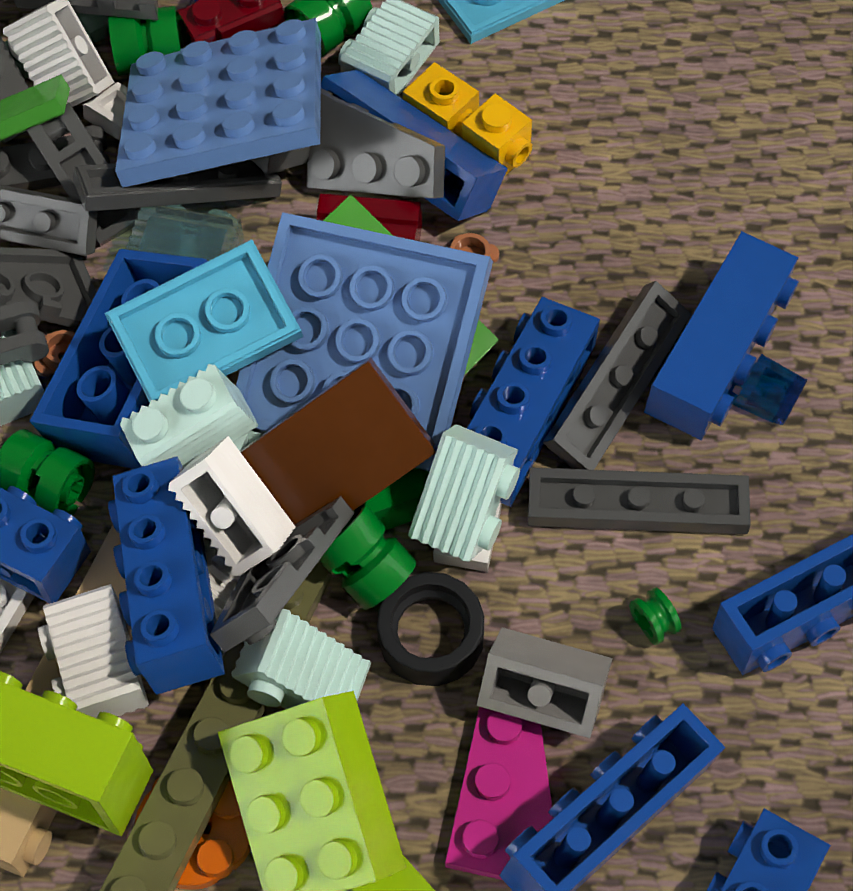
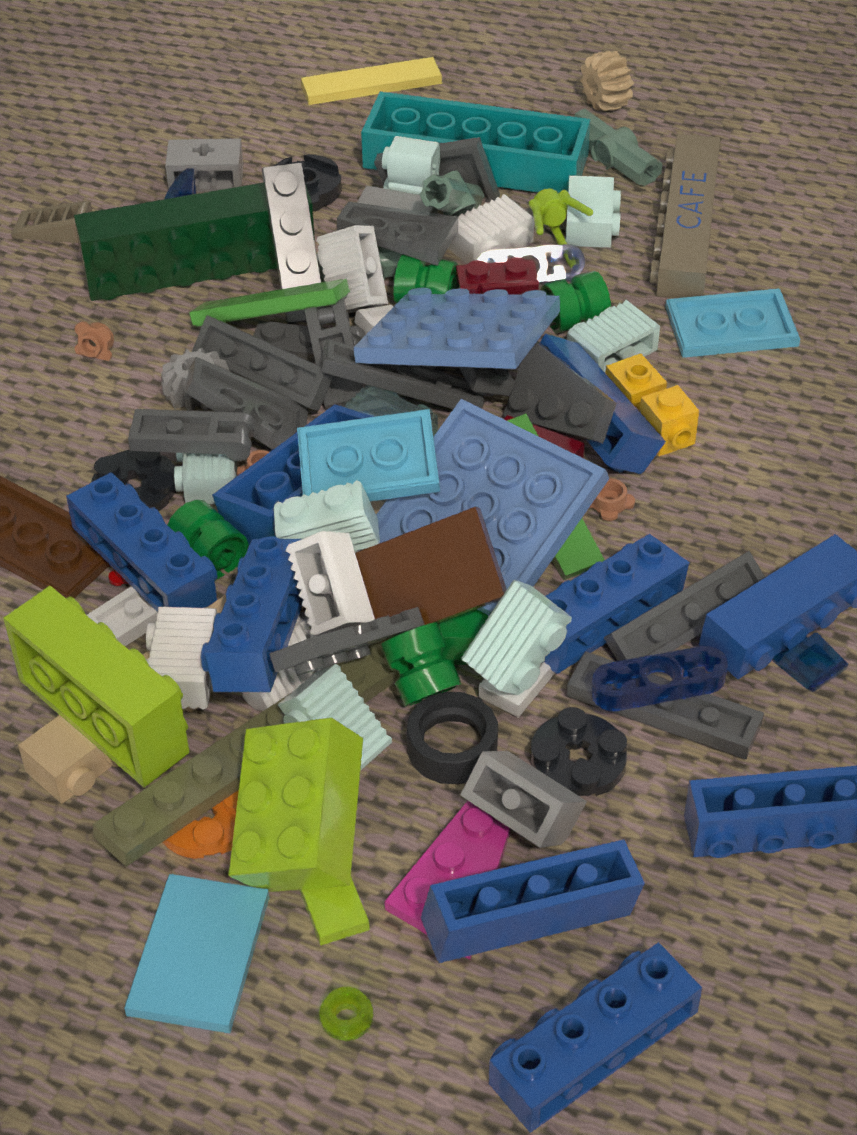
camera: 20 degrees right, 15 degrees down
(555, 569) = (576, 730): none -> black plate
(635, 454) = (648, 693): none -> clear blue beam
(655, 615) = (638, 787): green bush -> none

